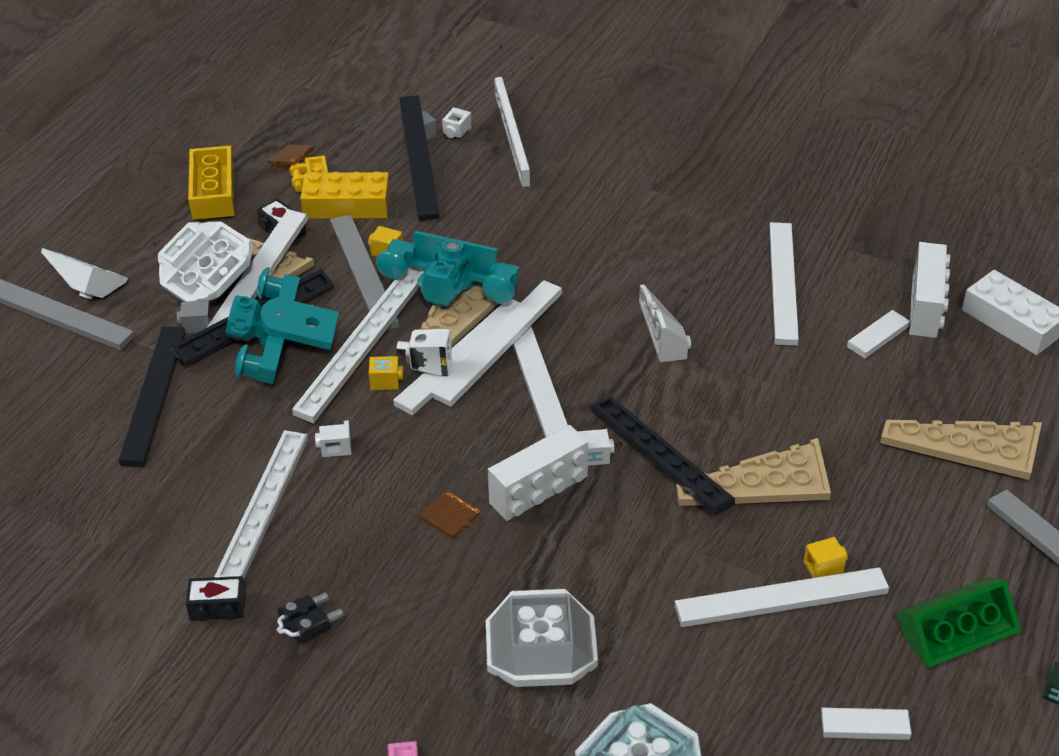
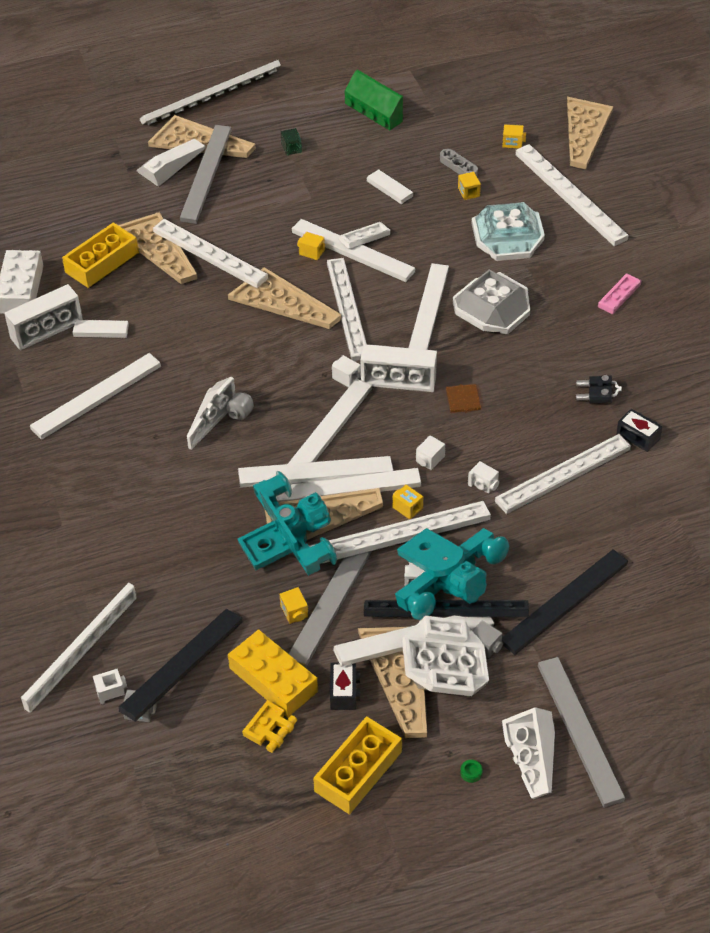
camera: 135 degrees left, 5 degrees up
(124, 240) = (471, 771): none -> green tile
(291, 154) = (263, 759): clear orange piece -> none
(413, 428) = (430, 452): none -> white brick
(428, 351) = (374, 474): white torso -> none
(601, 582) = (429, 307): none -> white tile
(643, 346) = (240, 406): none -> light grey head
(663, 456) = (317, 343): black tile -> none
(693, 525) = (347, 307): none -> white tile
(791, 620) = (364, 235): none -> white tile
(903, 462) = (210, 253): none -> white tile
(960, 621) = (292, 187): green slope -> none
(994, 381) = (100, 255): none -> yellow brick

